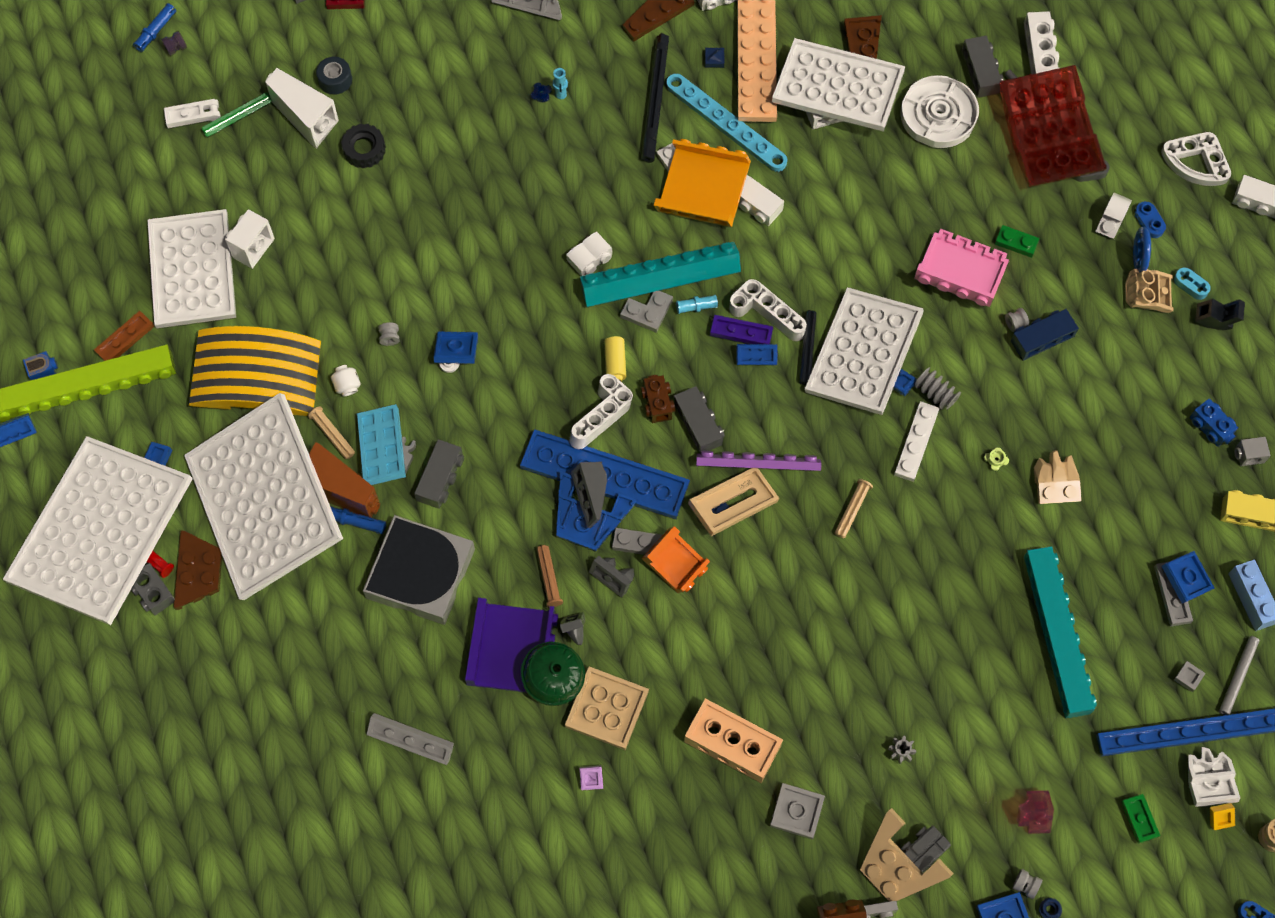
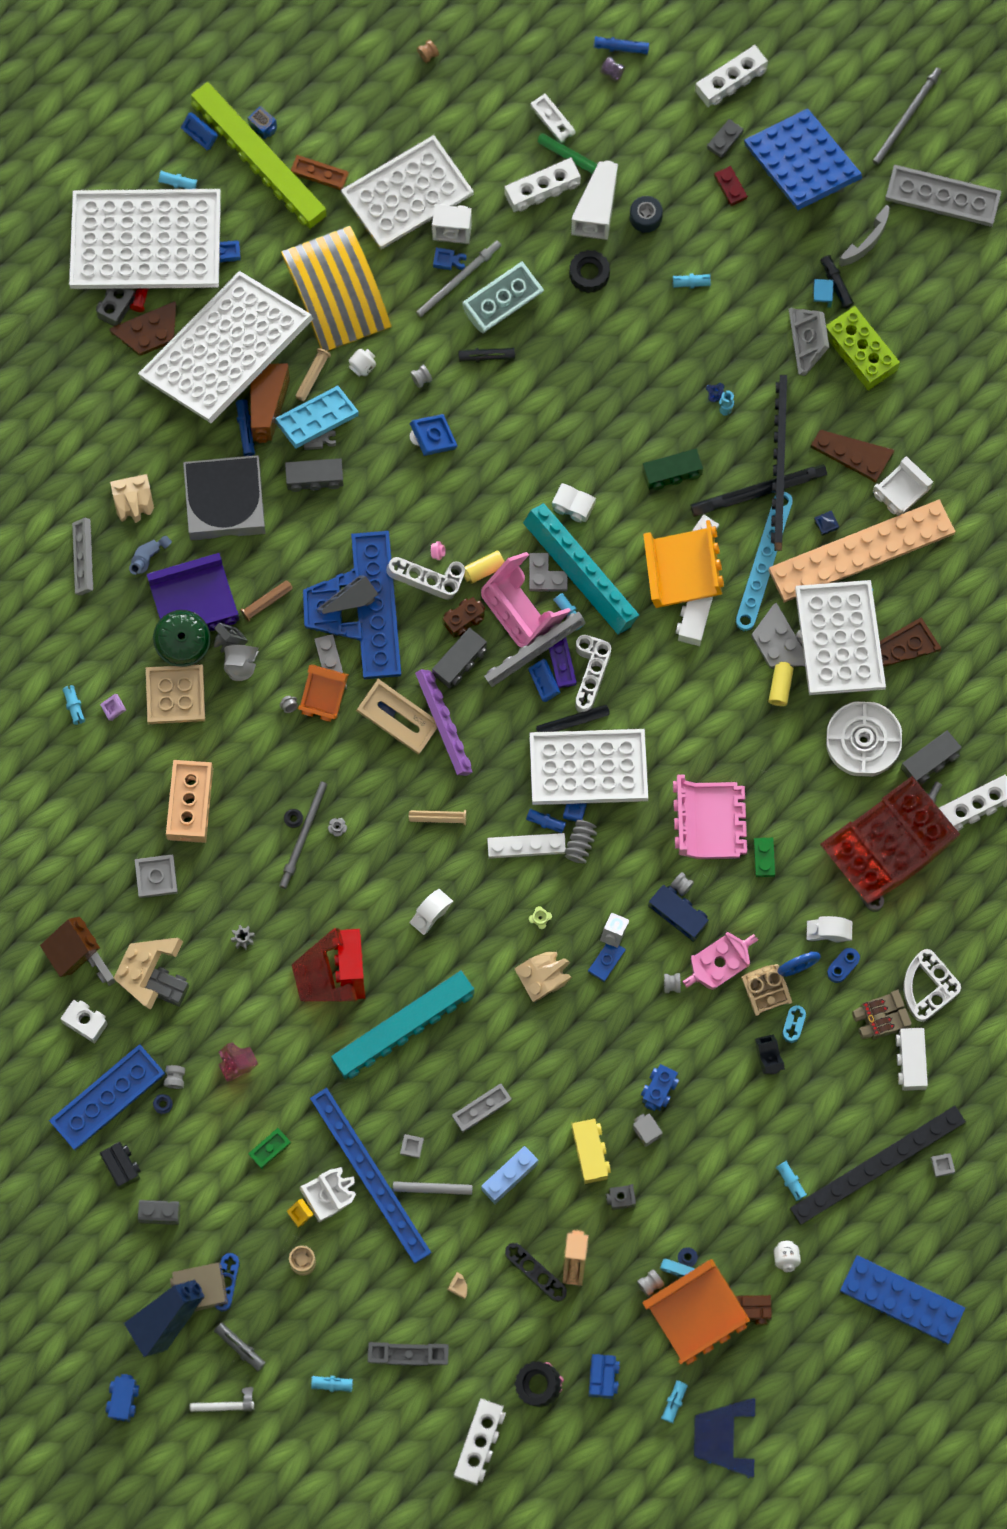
camera: 65 degrees right, 5 degrees up
(53, 474) = (177, 181): none -> medium azure pin
(58, 189) = (428, 51): none -> medium nougat wheel
(254, 121) = (564, 169): none -> white brick
(281, 262) = (445, 259): none -> blue plate
(296, 228) = (485, 255): none -> light grey bar
(350, 228) = (502, 297): none -> light aqua brick
(370, 661) = (132, 497): none -> tan plate
(397, 268) = (509, 353): none -> black pin
(420, 67) = (691, 281): none -> medium azure pin
(442, 679) = (142, 556): none -> sand blue arm
(569, 817) = (73, 704): none -> medium azure pin
(577, 394) = (437, 550): none -> bright pink plate
(600, 157) = (672, 469): none -> dark green brick
(605, 628) = (240, 661): none -> light grey helmet
(606, 572) = (287, 656): dark grey tile -> none
(643, 64) = (778, 470): none -> black plate
(670, 600) = (289, 704): none -> light grey plate
(674, 350) = (513, 607): none -> bright pink windscreen
(722, 339) = (530, 652): none -> light grey plate
(793, 641) = (293, 812): none -> black plate
(811, 143) = (777, 640): none -> light grey wing
(821, 613) = (332, 827): none -> light grey plate
(845, 672) = (290, 868): none -> flat silver bar
(855, 156) = (781, 684): none -> light yellow brick
(900, 412) = (546, 821): none -> blue pin
(952, 553) = (430, 910): none -> white brick
(974, 694) = (314, 973): none -> clear red wing
(975, 653) = (350, 961): none -> red wedge
(1040, 395) = (614, 930): none -> light grey brick
(1064, 418) = (606, 961): none -> blue plate
(1106, 304) = (730, 949): none -> bright pink plate
(1112, 368) = (672, 983): none -> light grey wheel
(1188, 577) = (500, 1113): blue tile -> none
(1214, 205) = (882, 1016): none -> dark tan hips

